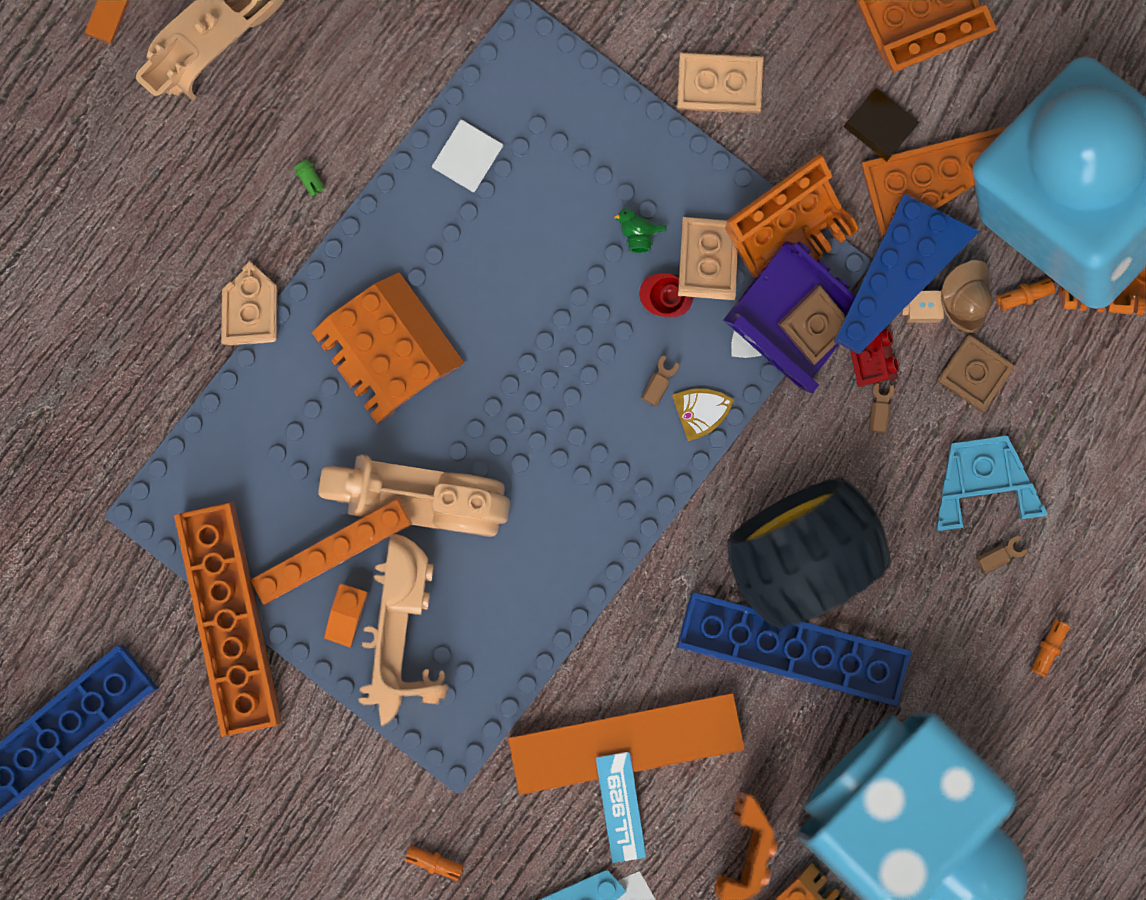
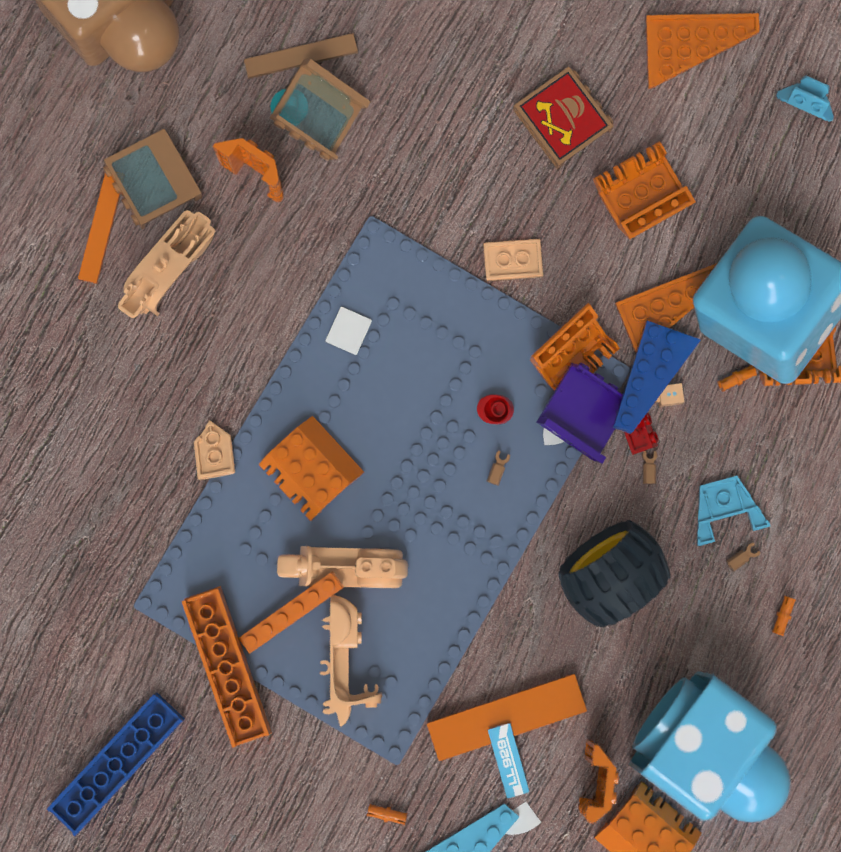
camera: 10 degrees left, 0 degrees up
(309, 177) = (243, 358): bright green pin -> none
(346, 615) = (306, 654): orange slope -> none
(637, 231) = (470, 368): green animal -> none
(701, 410) = (528, 484): sticker -> none
(707, 260) = (520, 382): light nougat tile -> none
(795, 651) = (619, 641): blue tile -> none
(813, 324) = (597, 416): medium nougat tile -> none
(881, 124) = (625, 275): dark brown tile -> none
(967, 295) = (698, 384): medium nougat hat -> none
(976, 373) = (710, 435): medium nougat tile -> none

